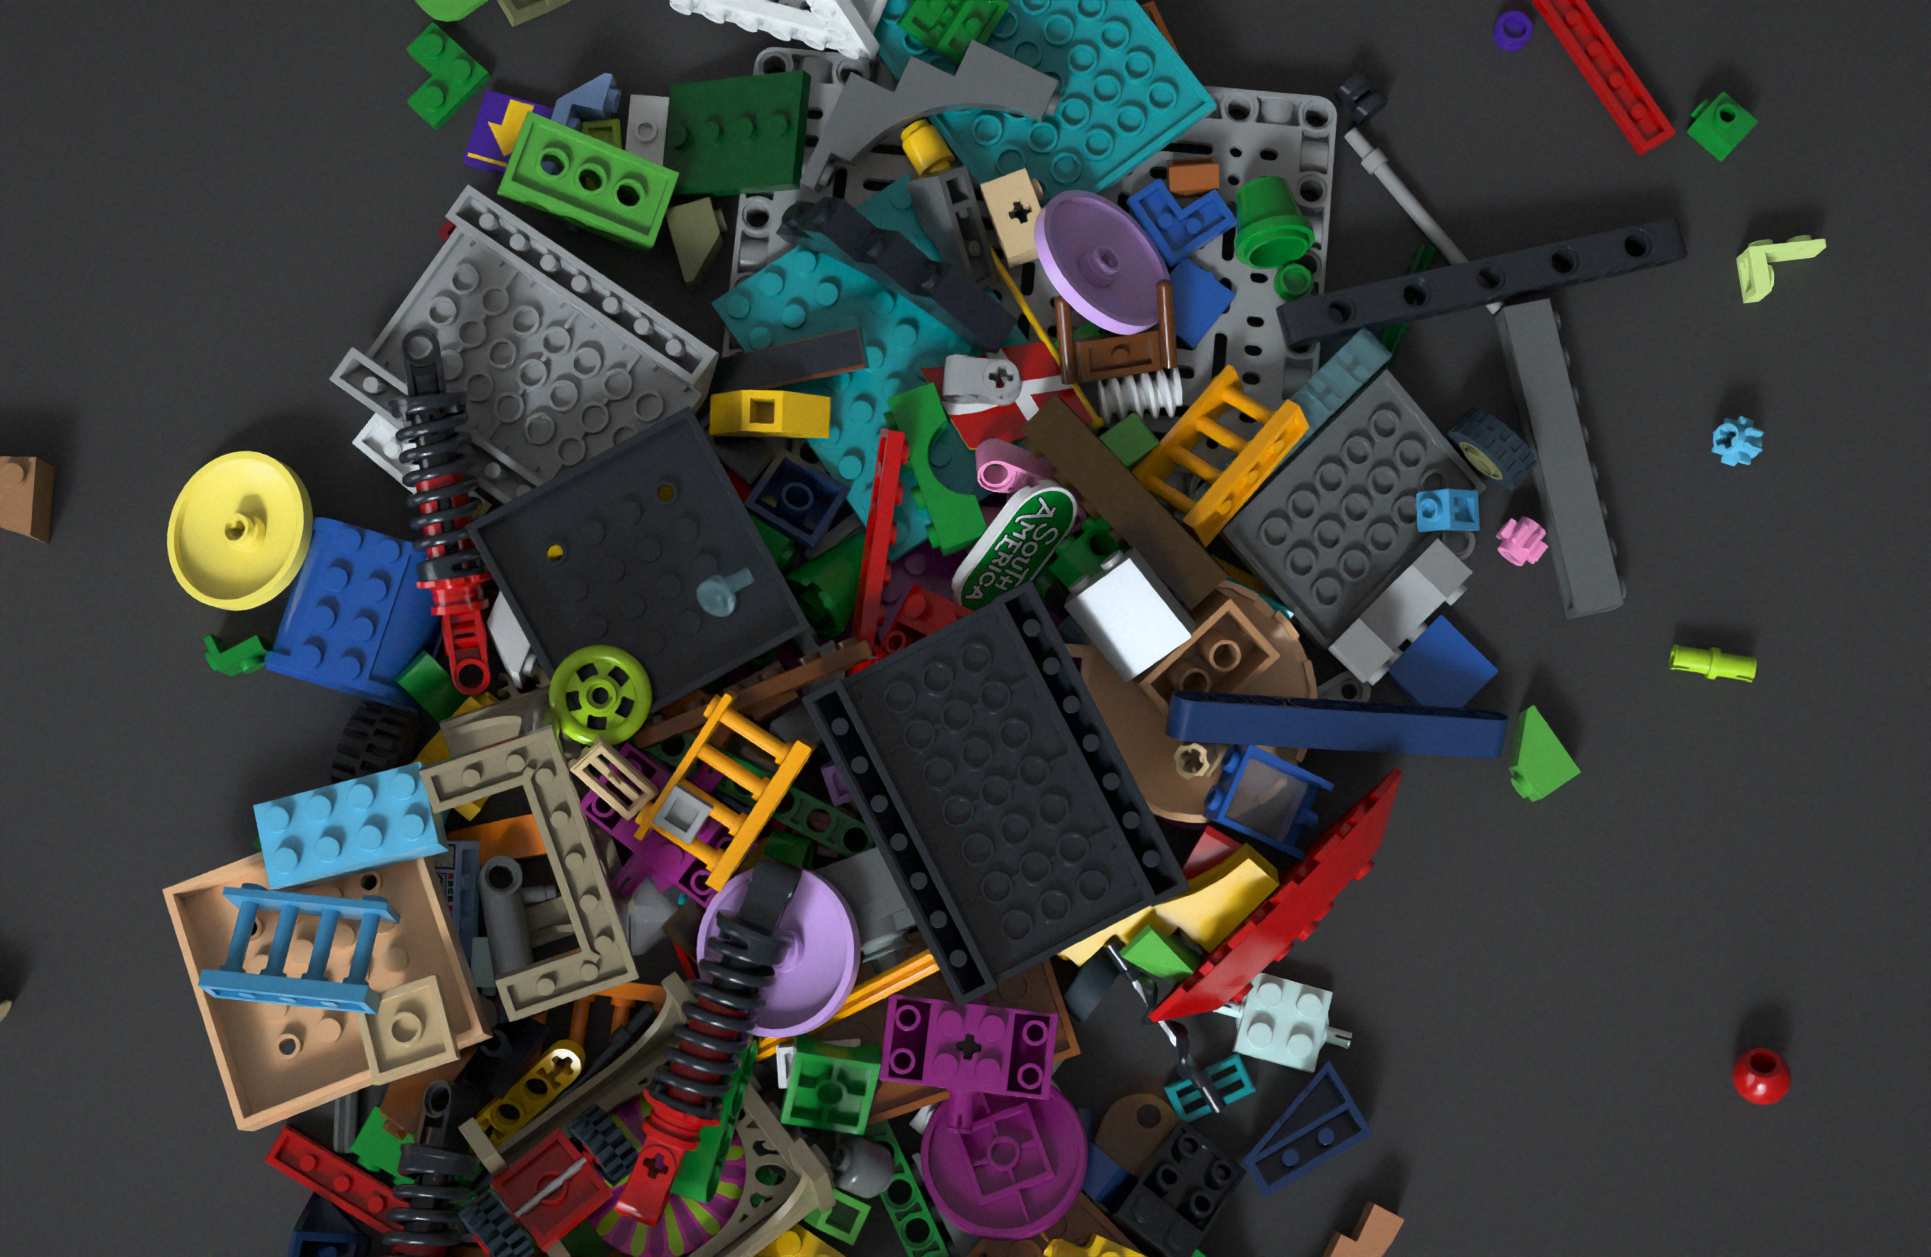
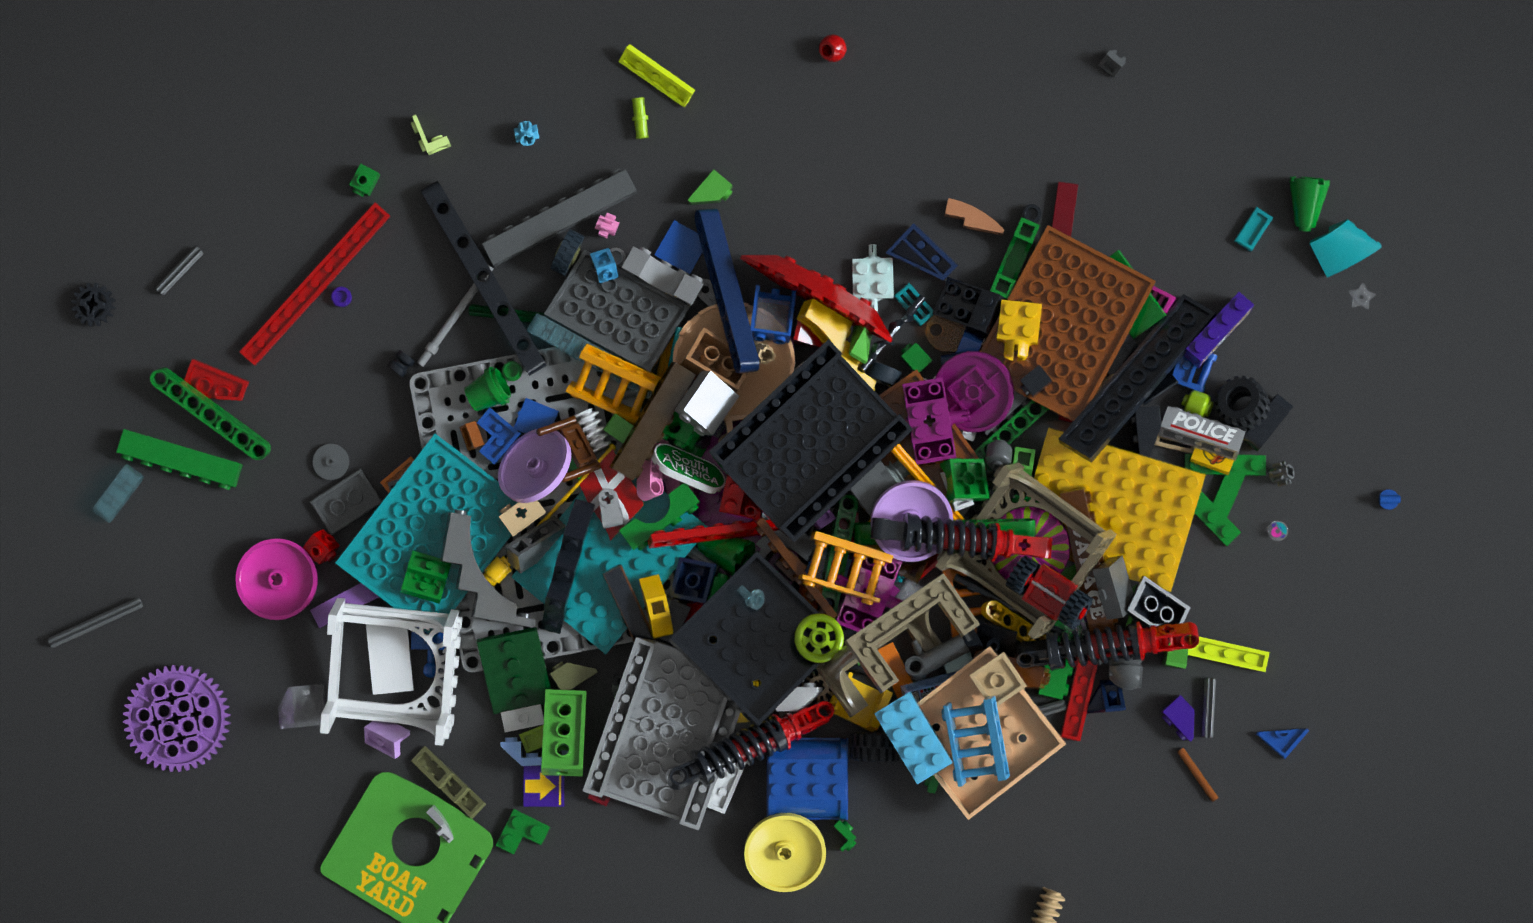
camera: 105 degrees left, 5 degrees up
(431, 687) = (834, 731): green slope -> none
(590, 756) = (849, 632): tan tile -> none
(683, 814) = (862, 581): light grey plate -> none
(1105, 1059) = (915, 357): none -> green brick
(1788, 717) = (656, 75): none -> neon yellow plate

